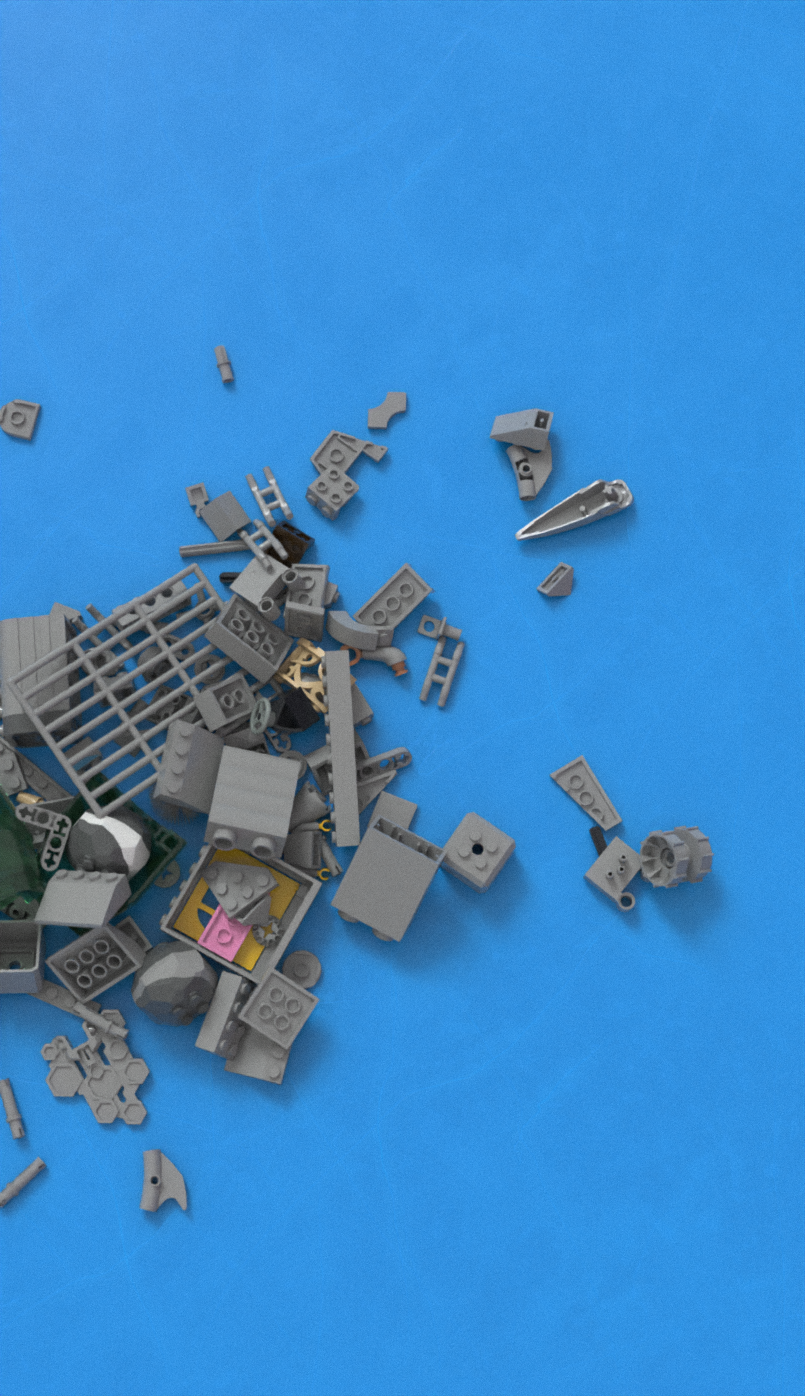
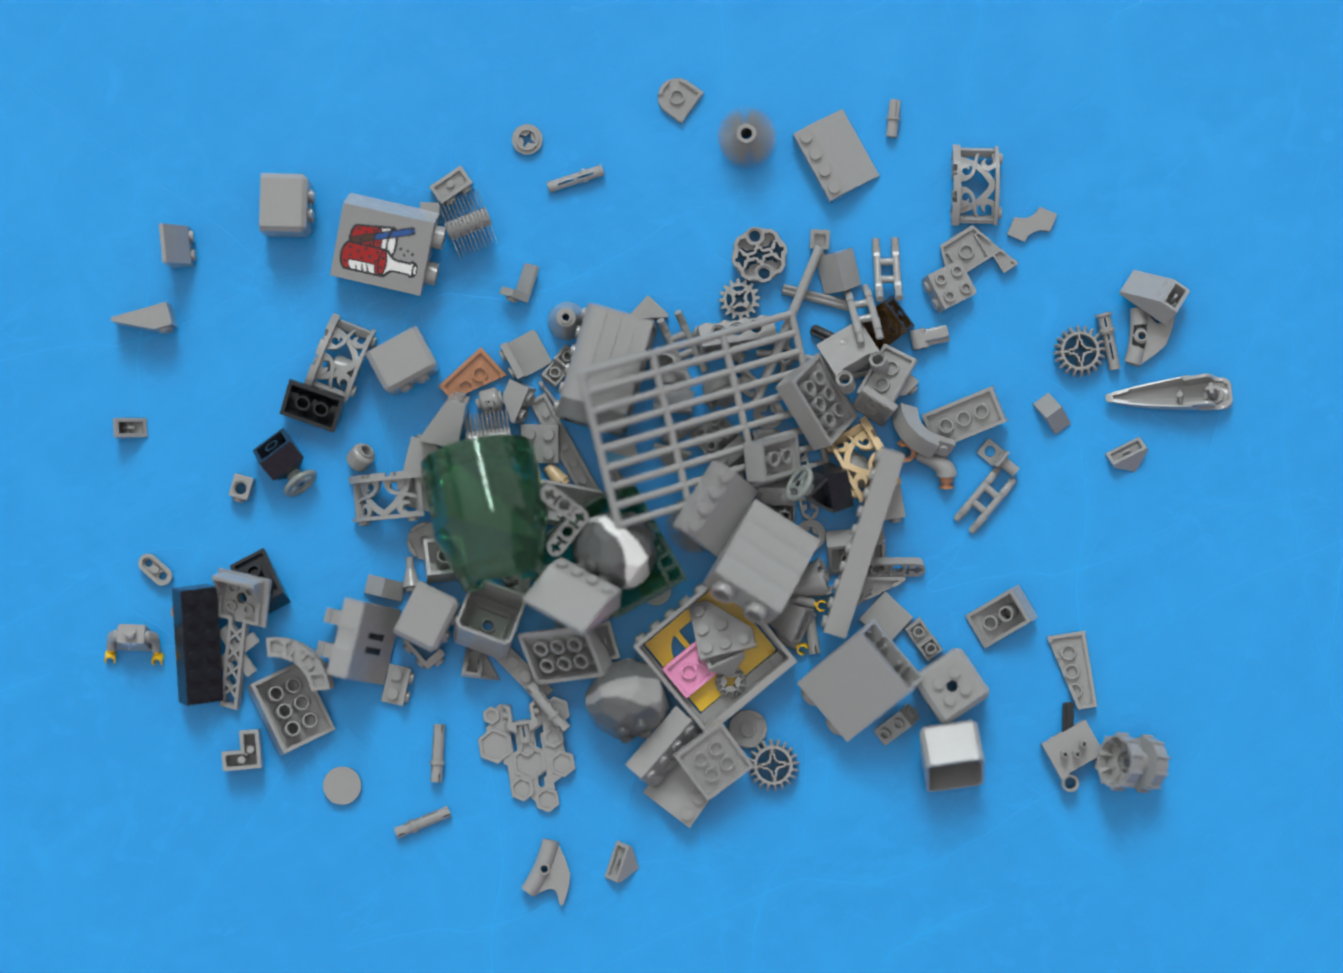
camera: 25 degrees right, 10 degrees up
(19, 1009) = (478, 666): none -> light grey slope
(93, 426) = (744, 145): none -> light grey piece
(134, 529) = (772, 267): none -> light grey connector
(135, 571) = (732, 293): none -> light grey gear
(182, 416) = (835, 155): none -> light grey slope
(196, 558) = (795, 306): none -> light grey piece
(229, 1145) = (621, 863): none -> light grey slope
(306, 371) = (958, 205): none -> light grey fence
(327, 547) = (924, 337): none -> light grey piece
(347, 989) = (790, 763): none -> light grey gear
(434, 821) = (923, 639): none -> light grey slope
(441, 910) = (897, 724): none -> light grey bracket
(473, 570) = (1052, 413): none -> light grey slope
(488, 497) = (1079, 359): none -> light grey gear
(493, 478) = (1112, 363): none -> light grey pin
(499, 771) = (1001, 616): none -> light grey slope
(504, 916) = (951, 756): none -> light grey plate

